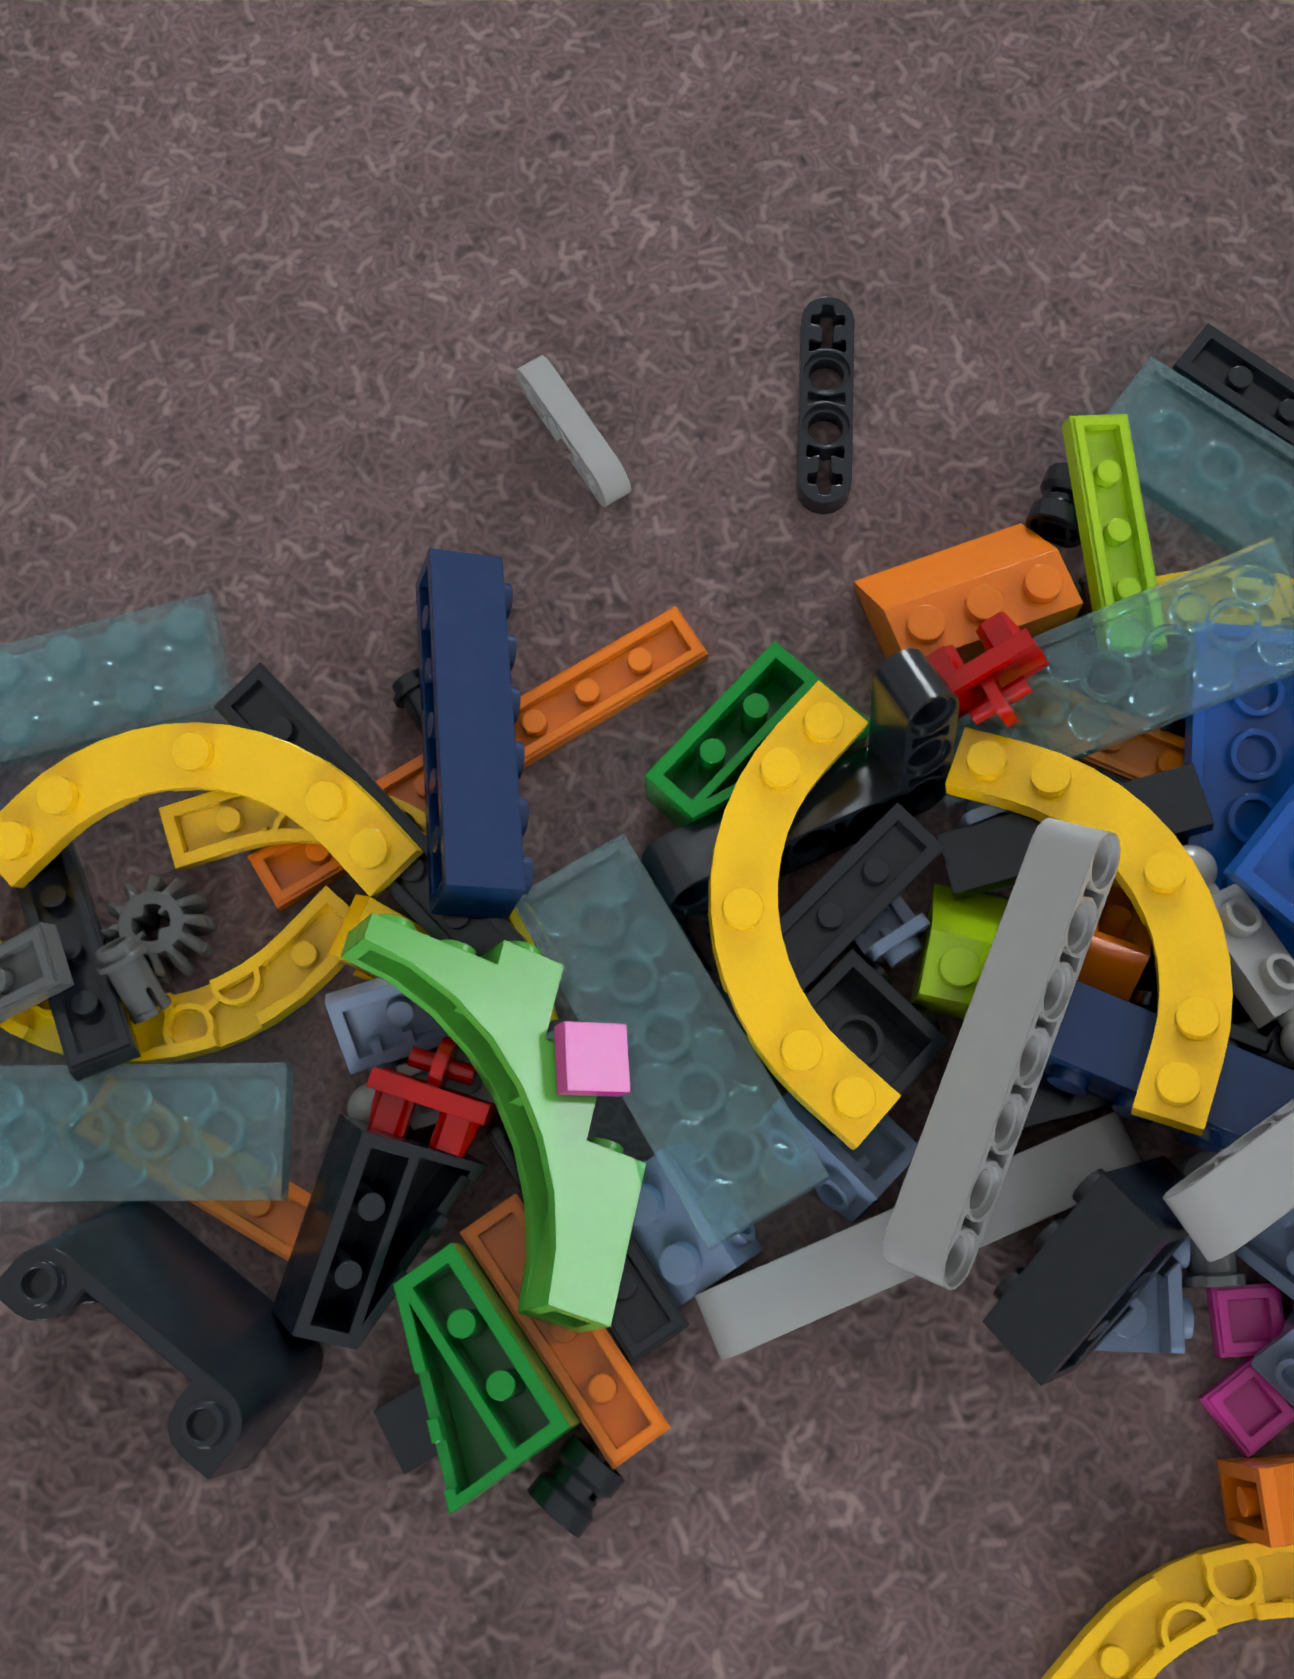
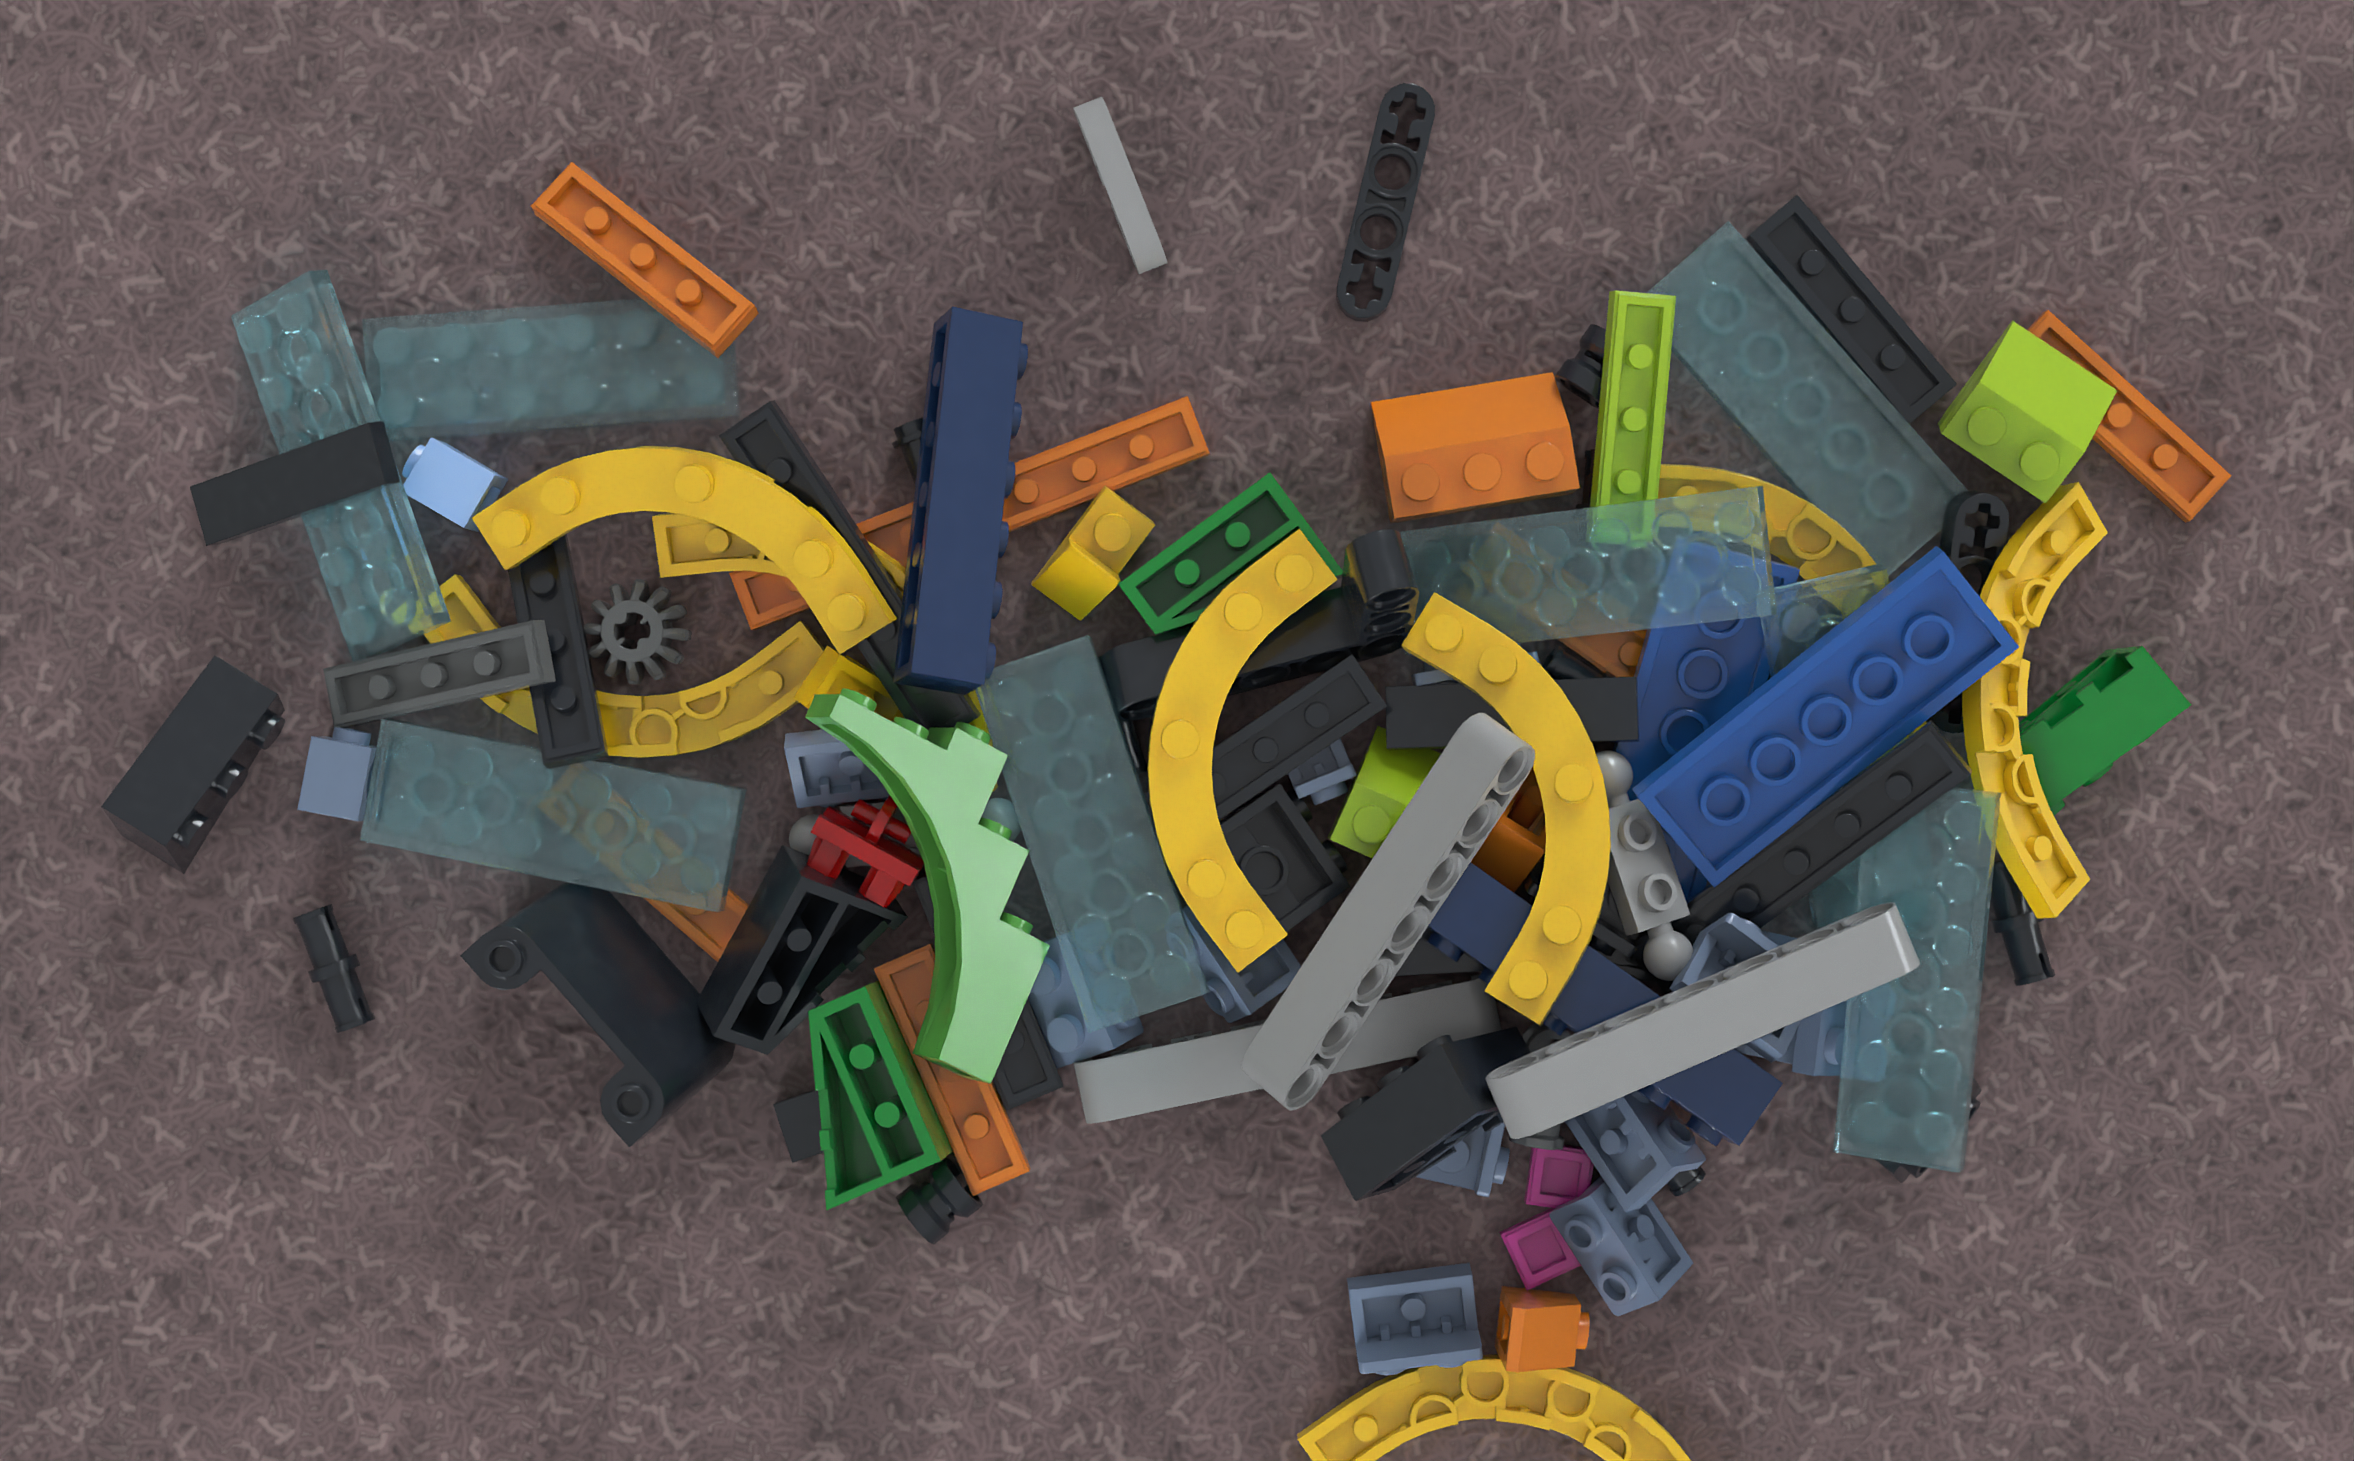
camera: 10 degrees right, 15 degrees up
(125, 575) = (645, 260): none -> orange tile
(132, 977) = (606, 674): dark grey pin -> none
(591, 1059) = (1017, 849): tile -> none
(612, 768) = (1093, 554): none -> yellow slope
(995, 677) = (1489, 537): red hips -> none
(1136, 1516) = (1414, 1319): none -> sand blue bracket

